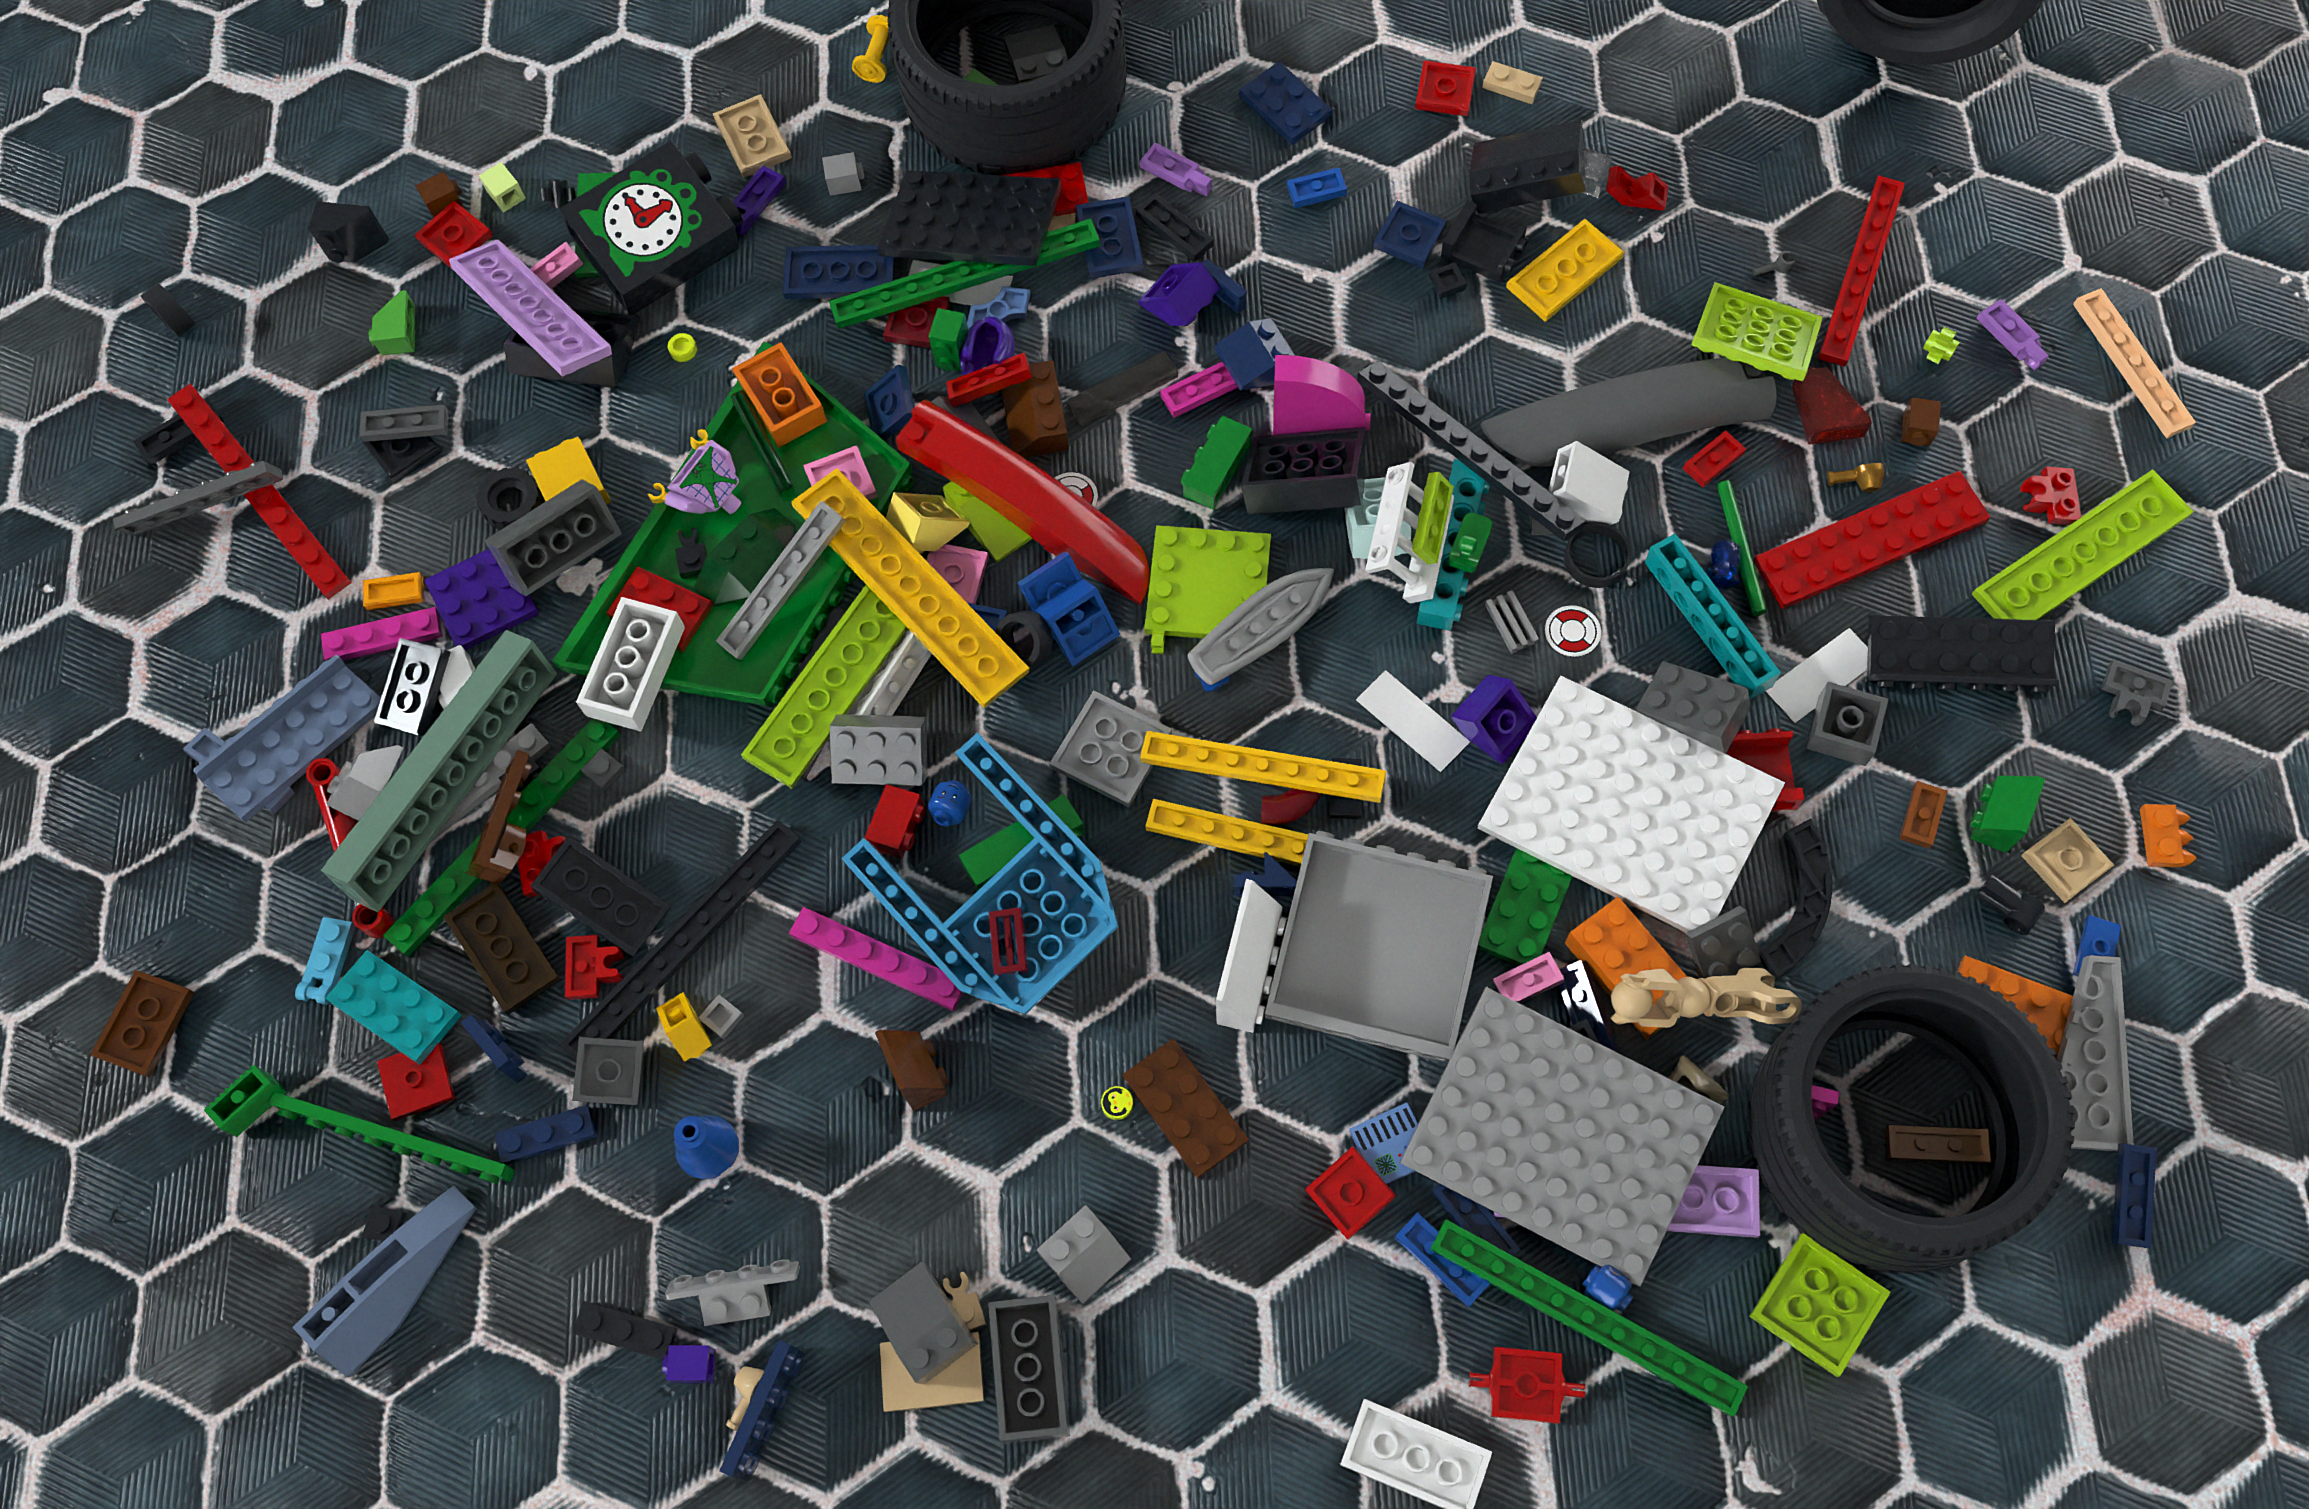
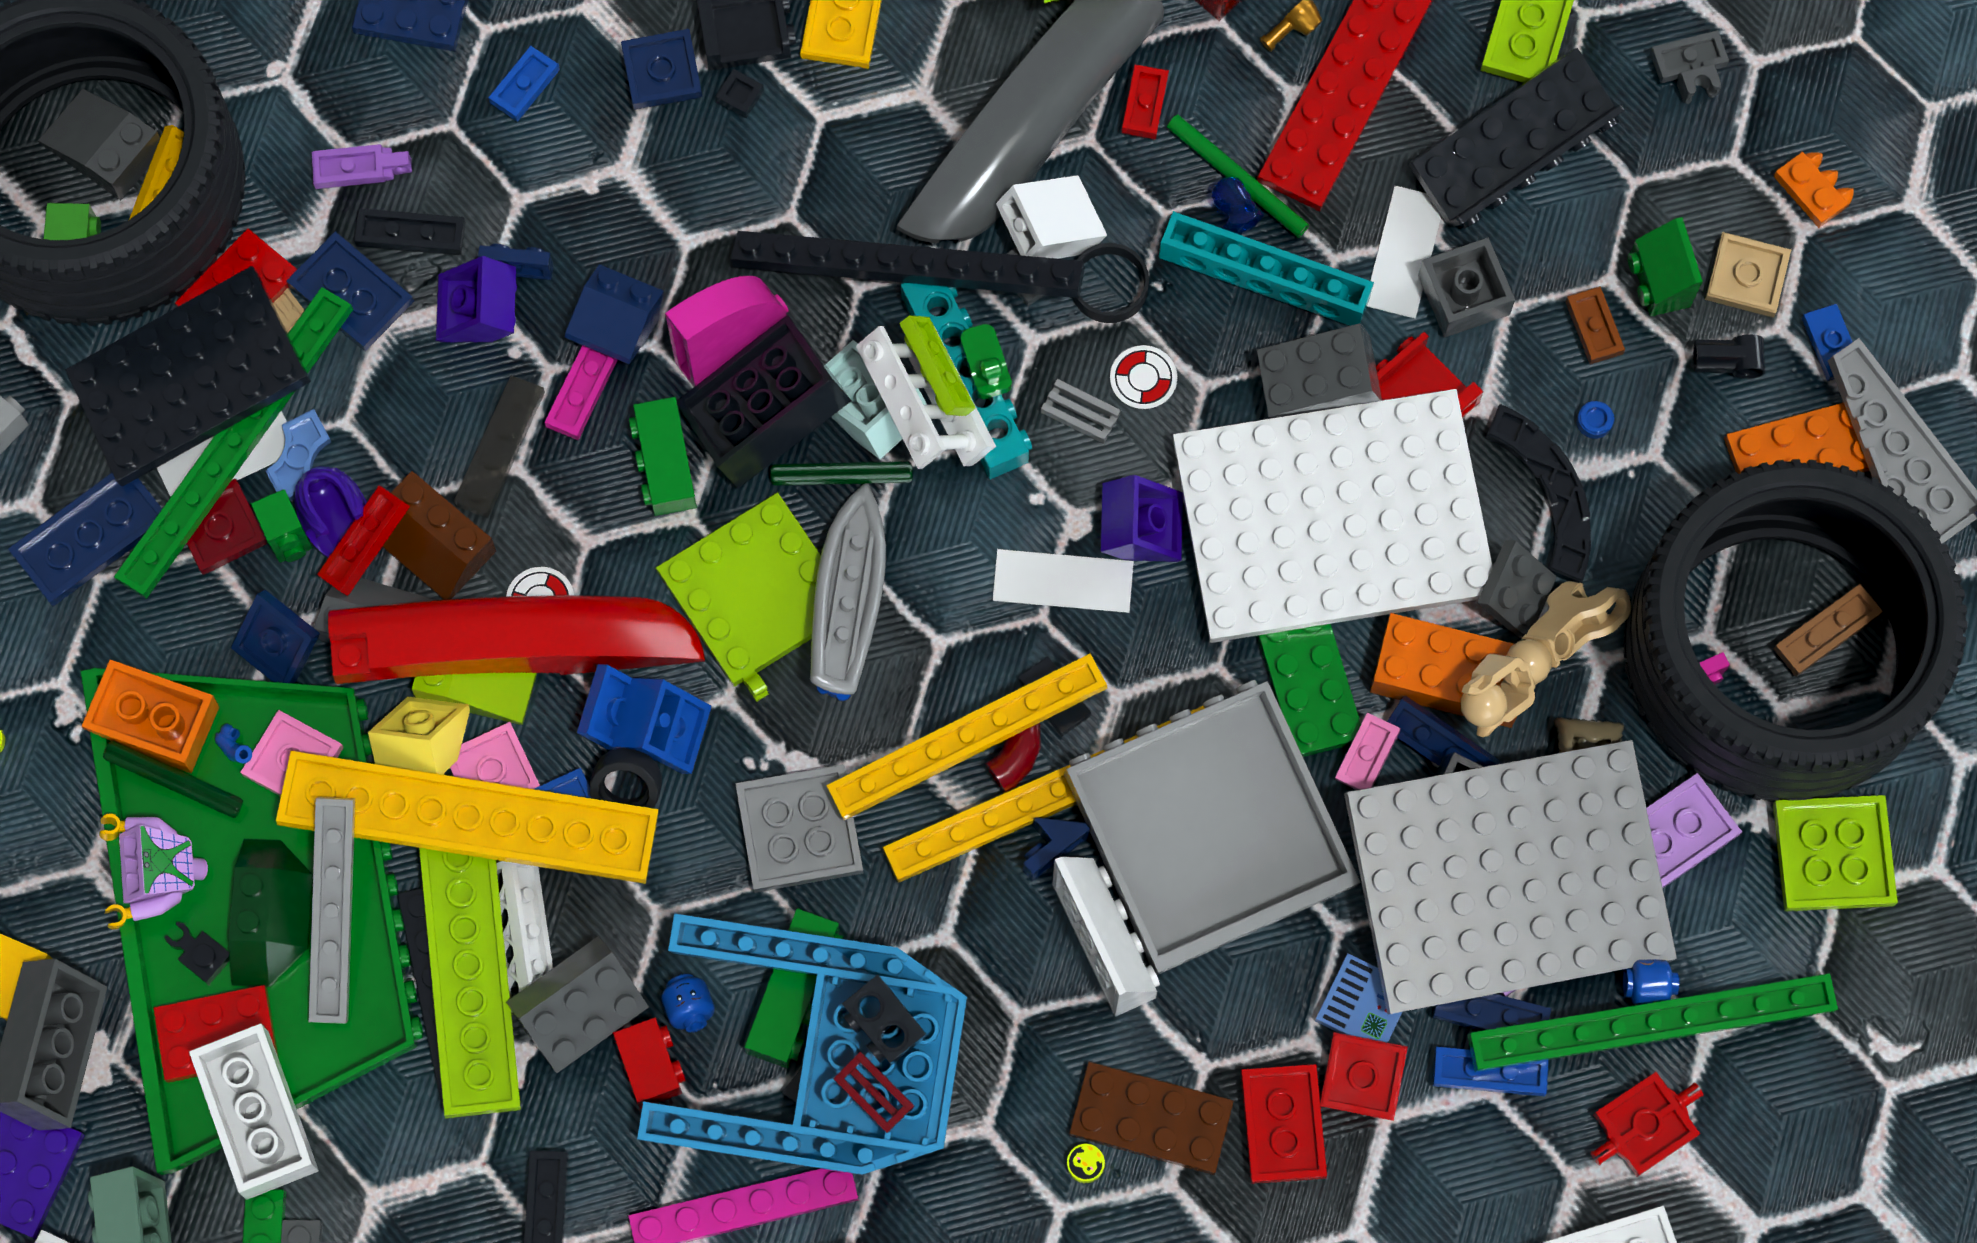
camera: 45 degrees left, 5 degrees up
(813, 443) = (227, 743): none -> blue arm
(1057, 896) = (891, 1014): none -> black brick
(1269, 1181) = (1283, 1124): none -> red plate
(1322, 551) = (841, 473): none -> dark green axle
(1873, 878) = (1595, 419): none -> blue tile

